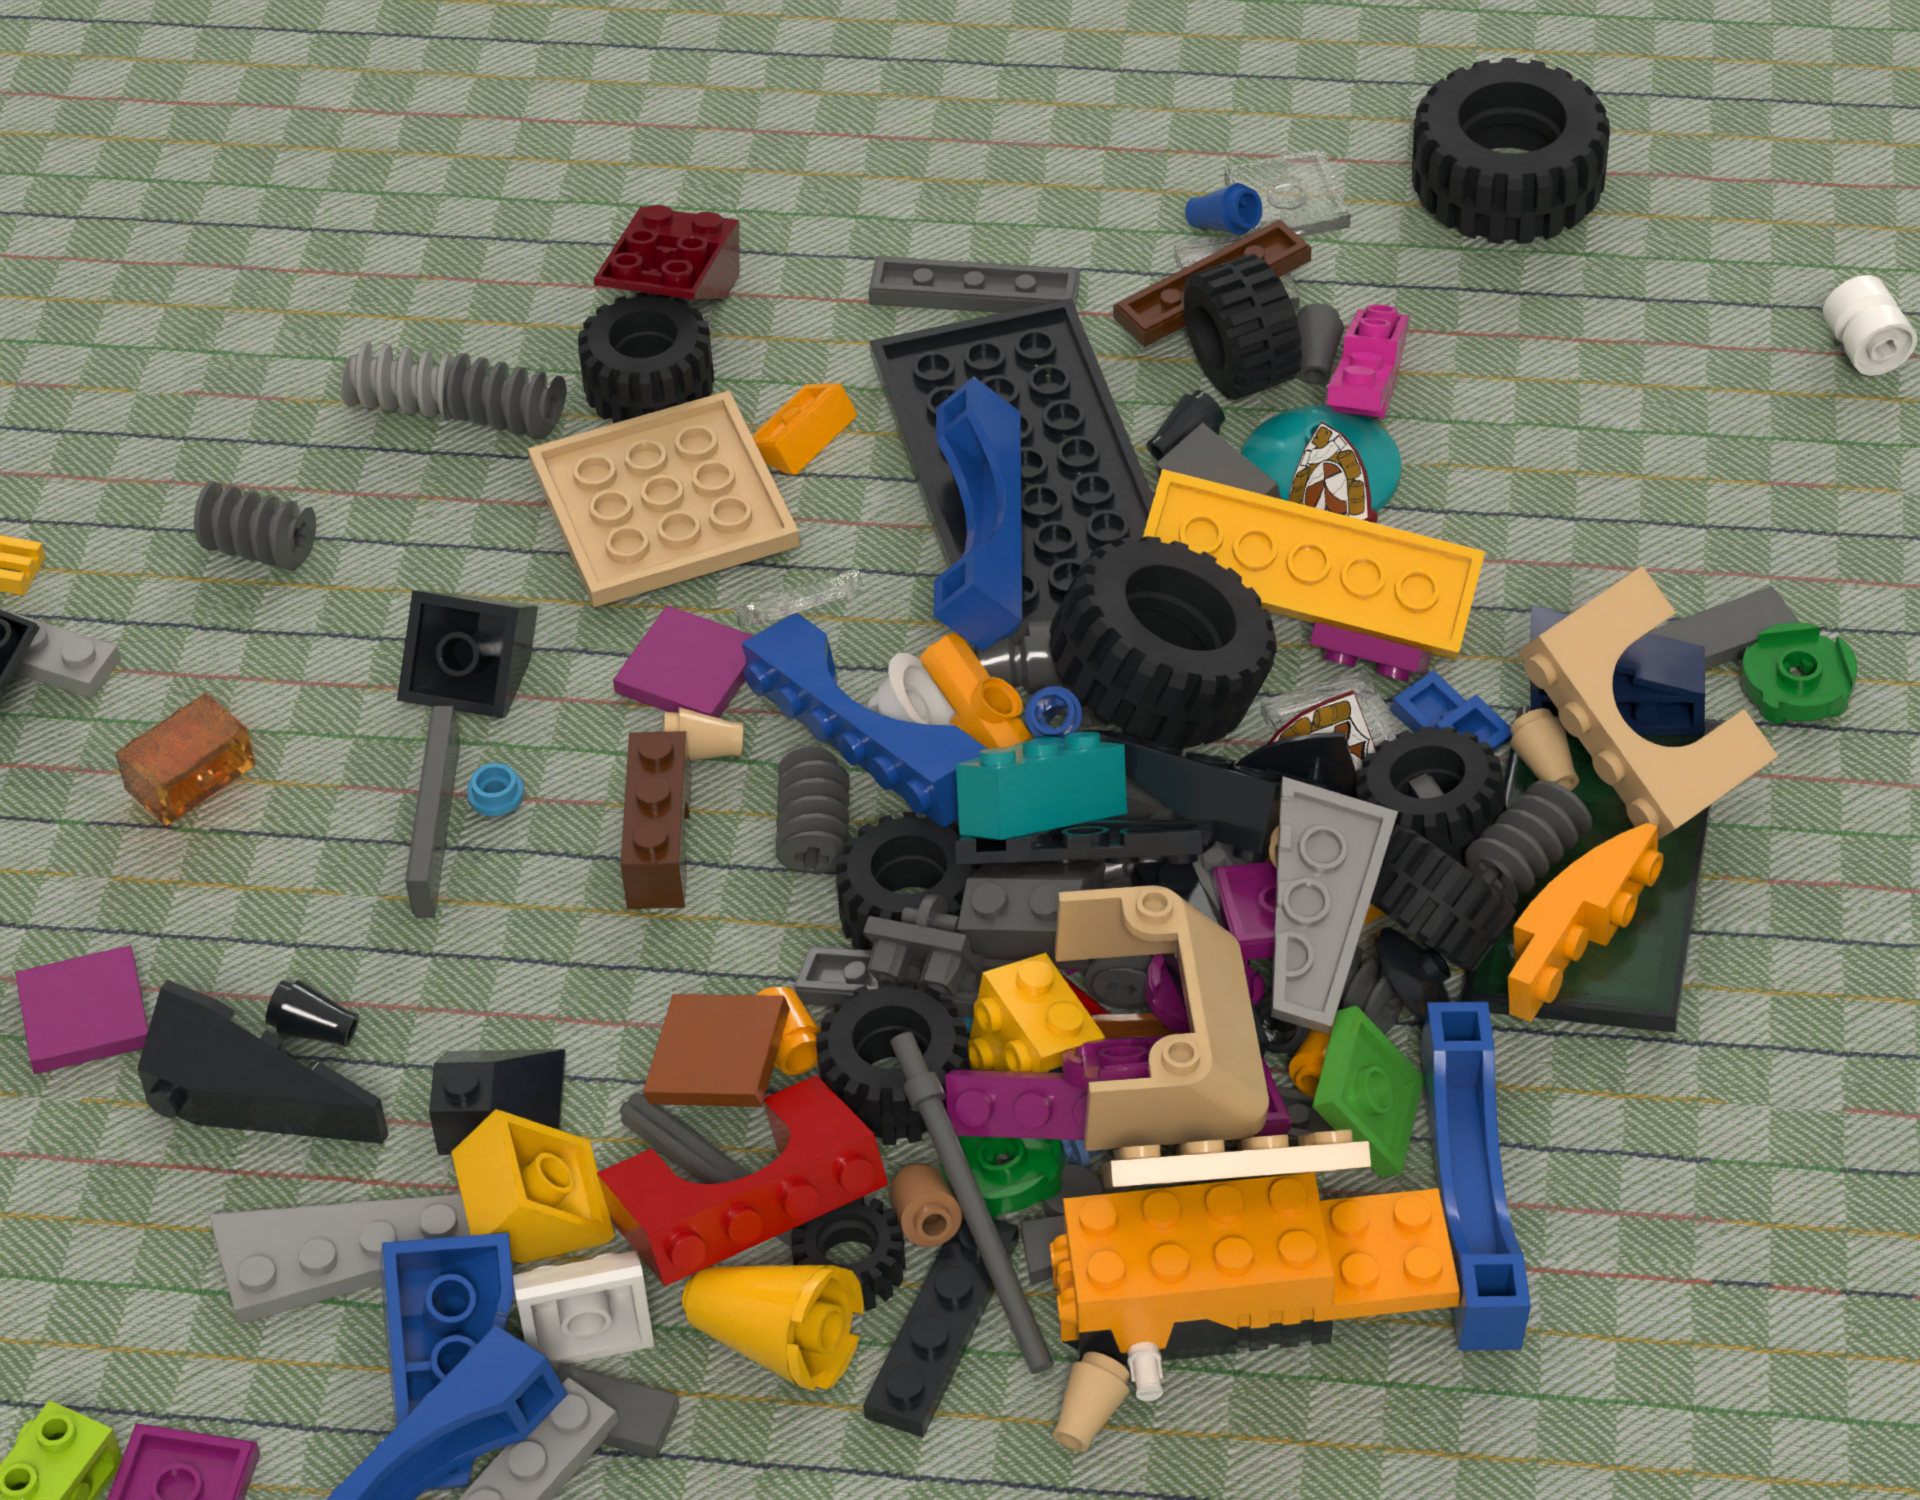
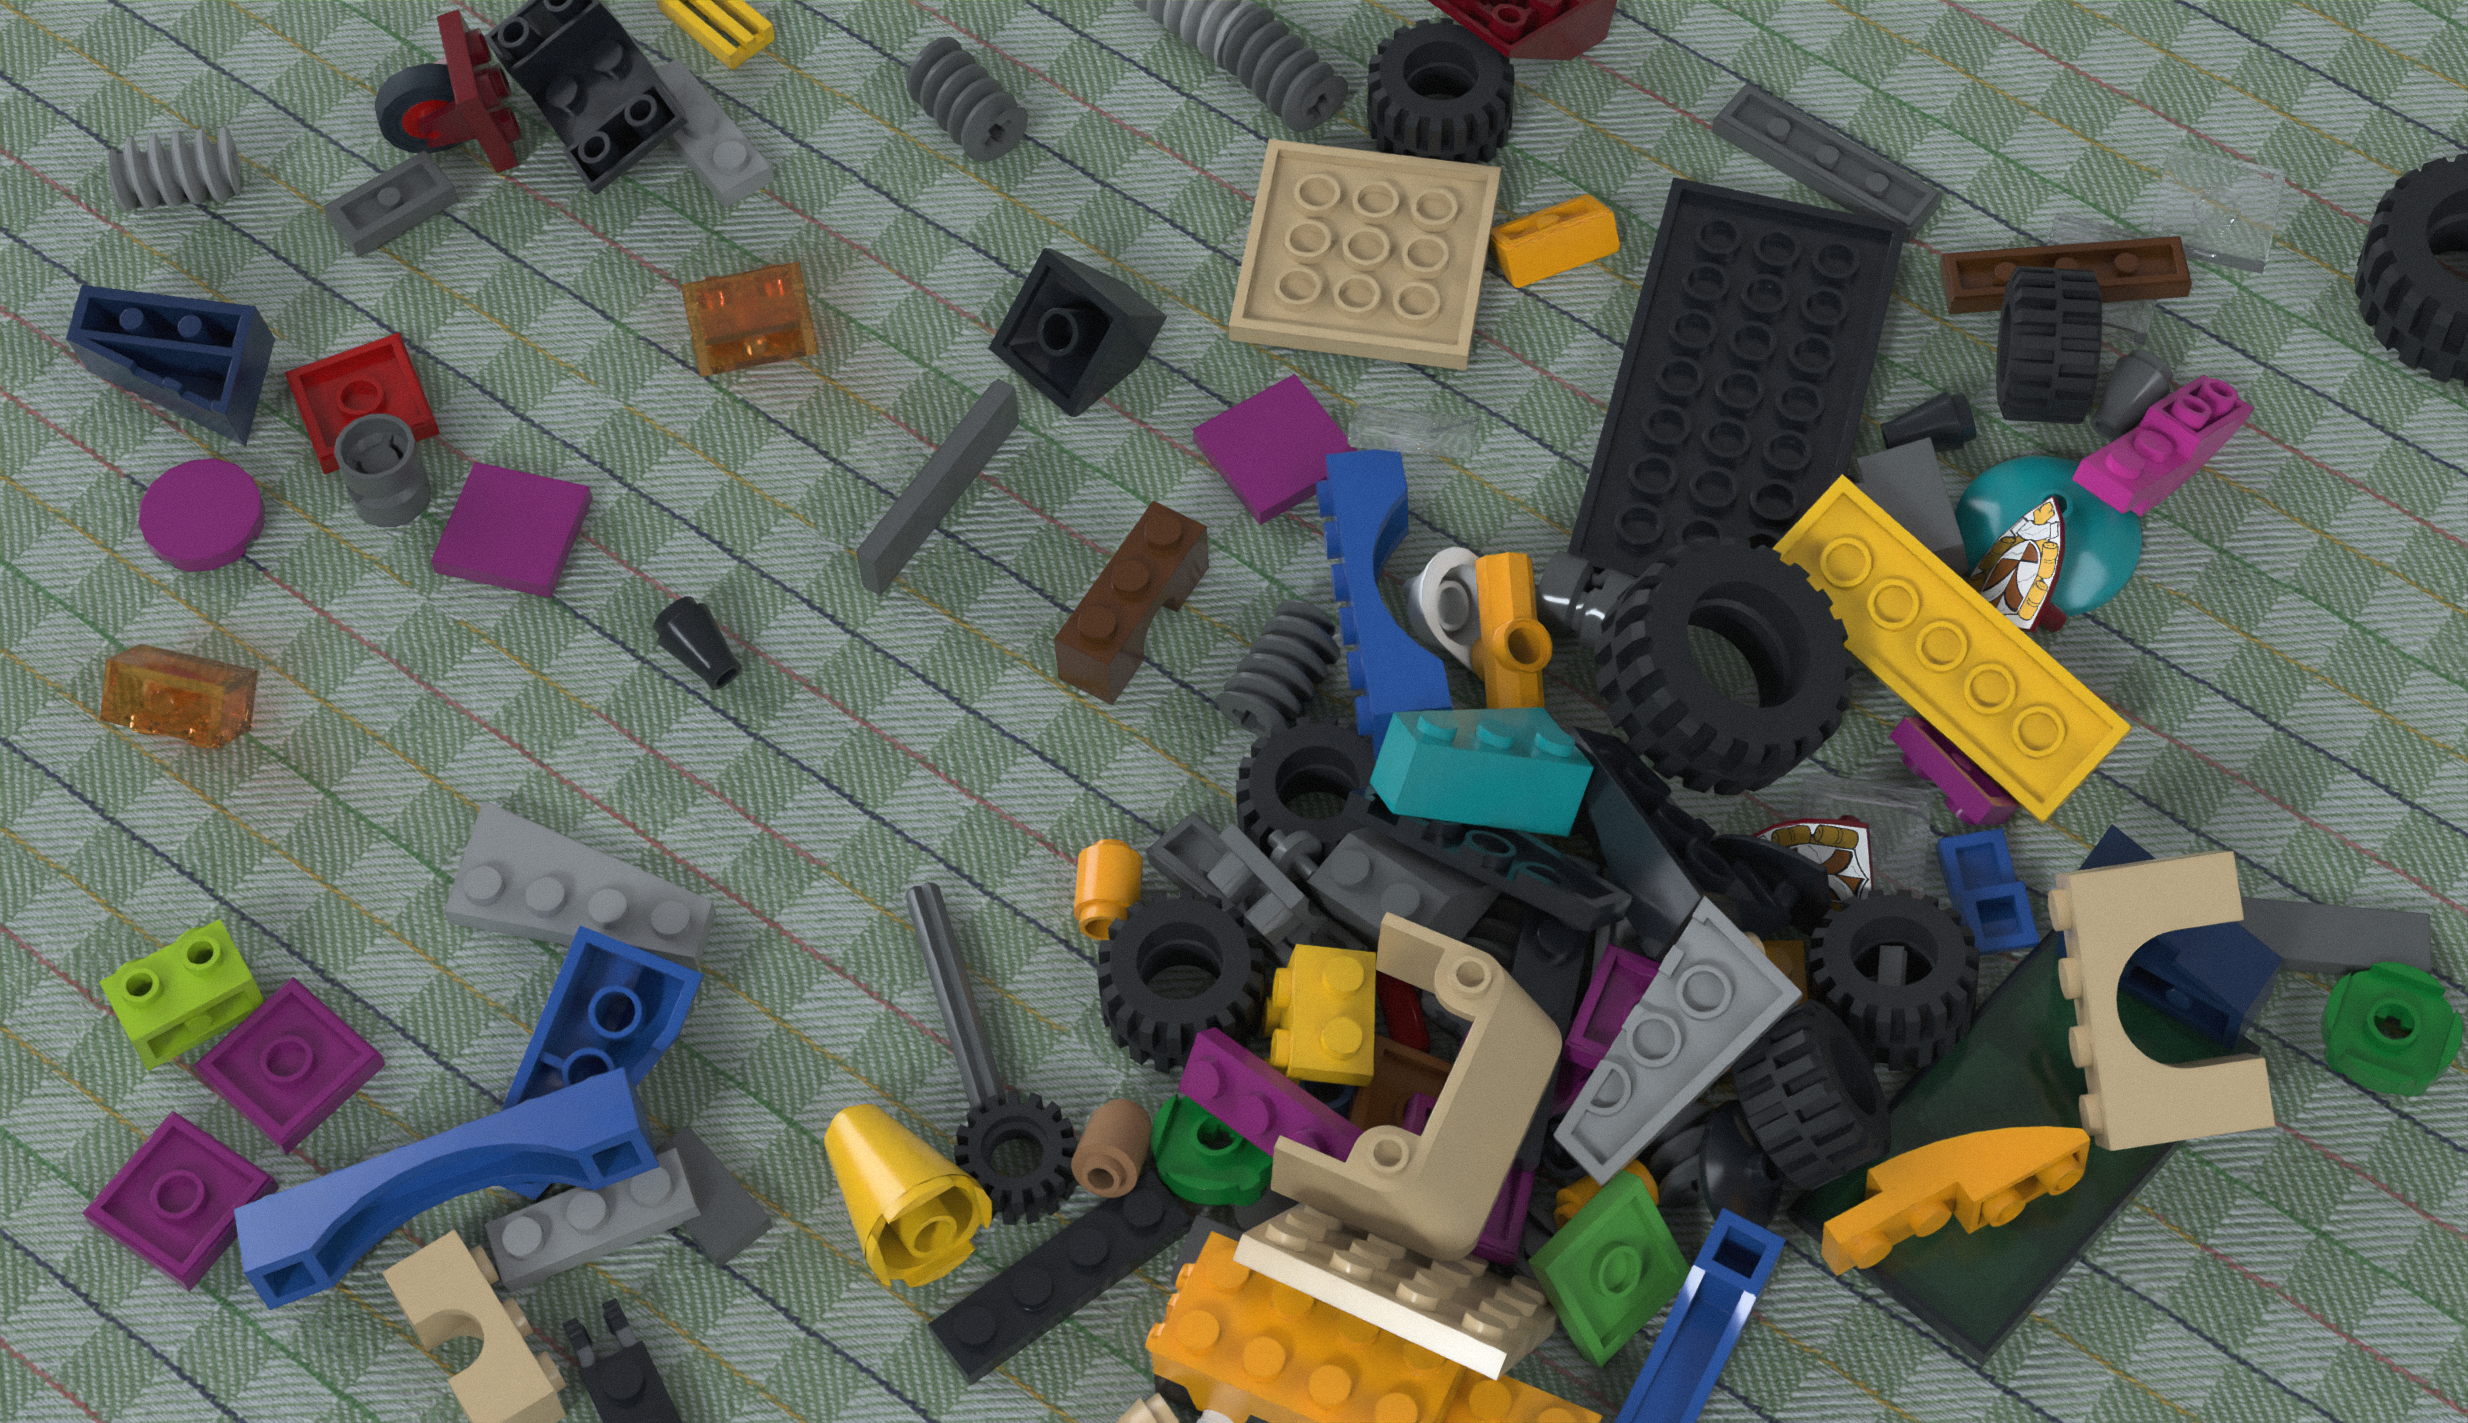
camera: 30 degrees right, 10 degrees up
(226, 1077) = (572, 671): black wedge -> none
(475, 1083) = (807, 817): black slope -> none
(495, 790) = (1011, 478): dark azure plate -> none
(532, 1186) = (774, 933): yellow slope -> none
(585, 1308) = (735, 1080): white slope -> none
(690, 1226) = (1026, 1065): red arch -> none
(706, 734) = (1236, 531): tan cone -> none
(716, 1050) = (1020, 882): dark orange tile -> none
(926, 1096) = (1167, 1041): dark grey bar -> none
(982, 445) = (1687, 356): blue arch -> none
(1049, 703) = (1557, 689): blue cone -> none
(1106, 1061) = (1342, 1109): magenta tile -> none
(1227, 210) = (2134, 199): blue cone -> none
(1528, 838) = (1956, 1074): dark grey piece -> none
(1544, 747) = (2040, 987): tan cone -> none

